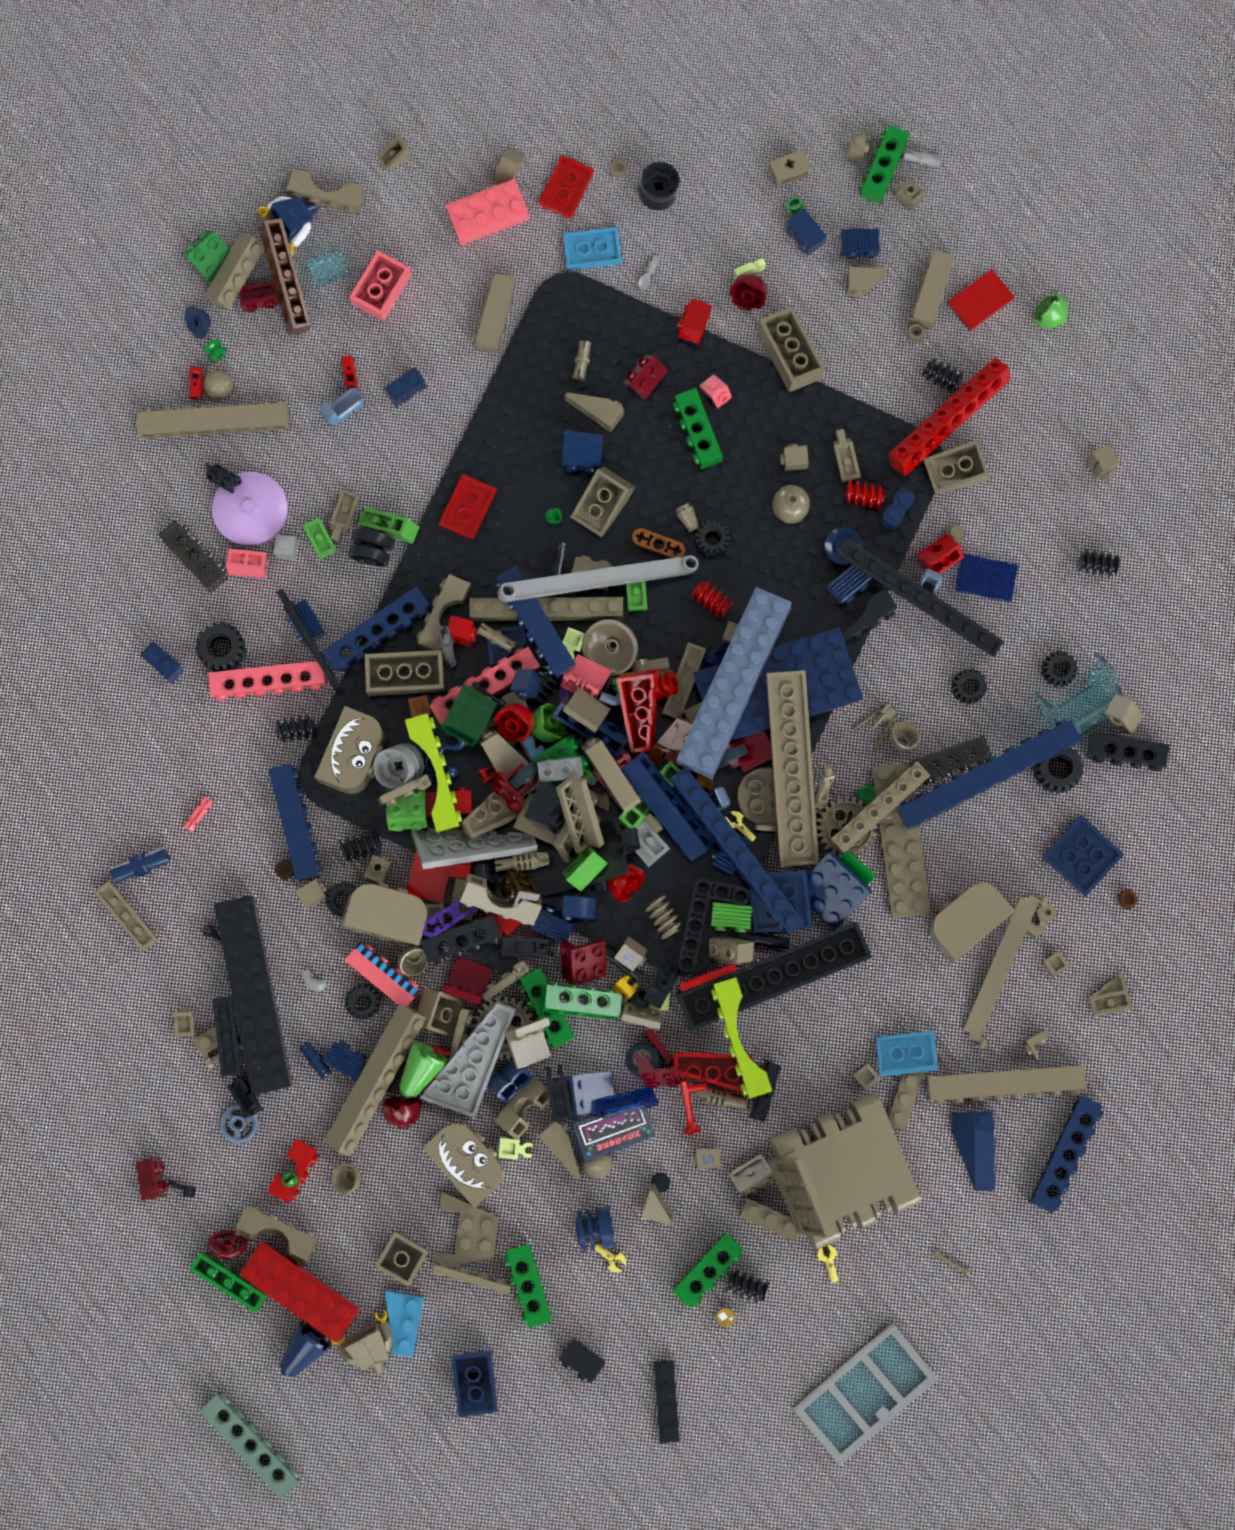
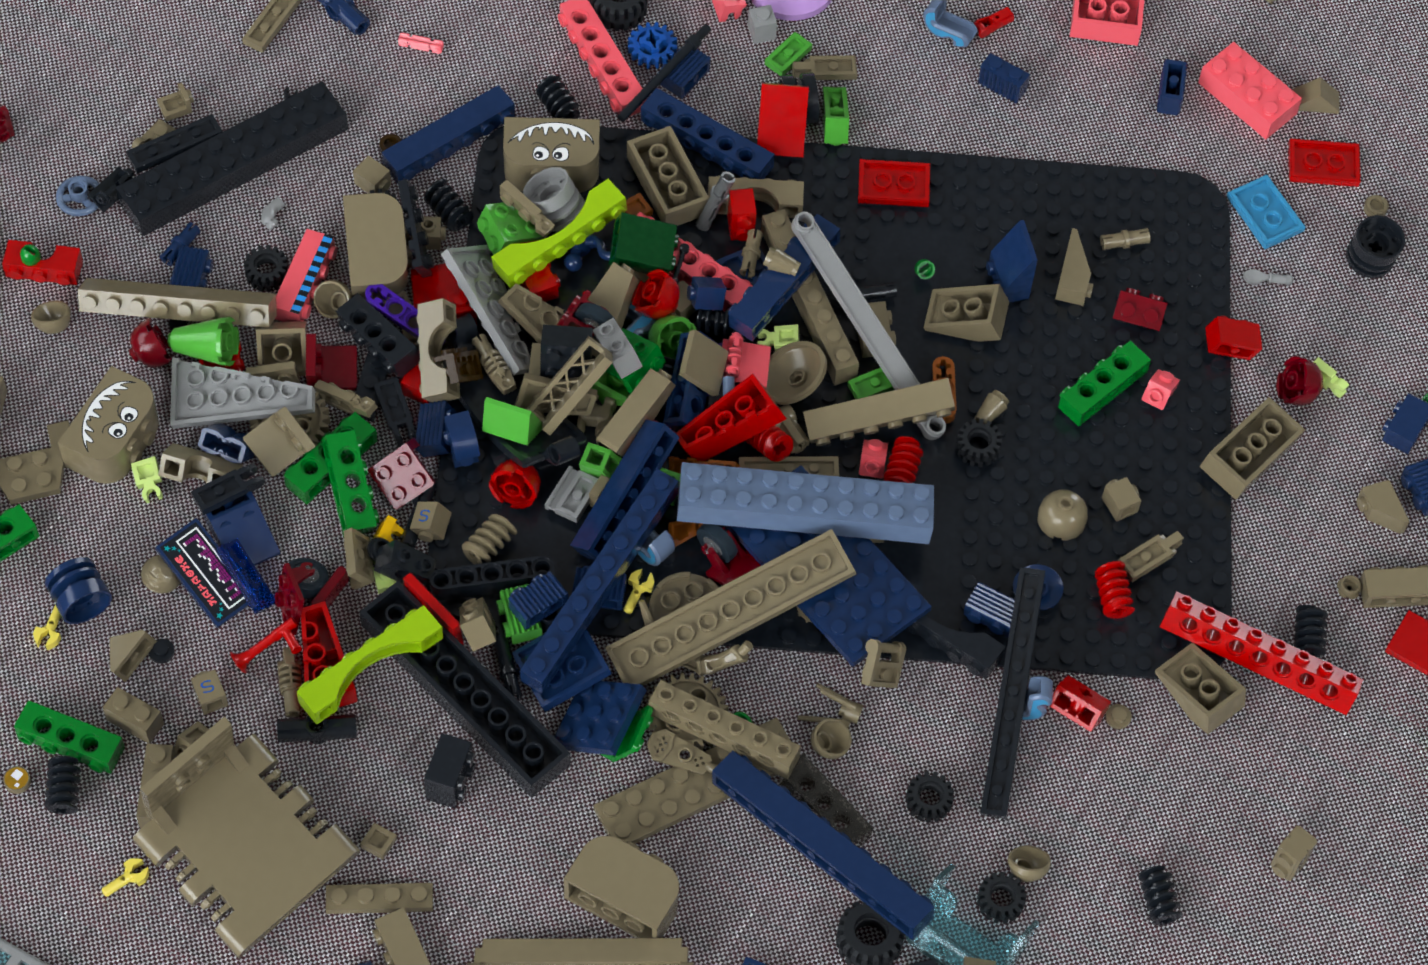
camera: 65 degrees right, 20 degrees down
(280, 639) = (652, 45): none -> blue gear
(355, 874) = (423, 262): none -> black wing
(389, 567) = (783, 119): none -> red tile
(464, 267) = (1172, 87): none -> dark blue brick
(496, 313) = (1136, 137): dark tan brick -> none
(531, 621) = (781, 262): none -> dark tan cone
(559, 1143) = (169, 519): dark tan slope -> none
(668, 598) = (879, 411): none -> dark tan brick
(696, 617) = (873, 458): none -> coral bracket
(708, 1219) = (133, 715): none -> dark tan brick
(734, 901) = (537, 600): none -> dark blue brick
(837, 1009) = (449, 771): none -> black brick
(866, 677) = (883, 672): none -> dark tan plate
(873, 846) = (672, 751): none -> dark tan piece
(900, 505) = (1118, 633): dark blue brick -> none
(906, 1053) = (425, 876): dark azure tile -> none
(986, 578) = (1079, 773): clear blue tile -> none
(1043, 640) = (1029, 863): none -> dark tan piece

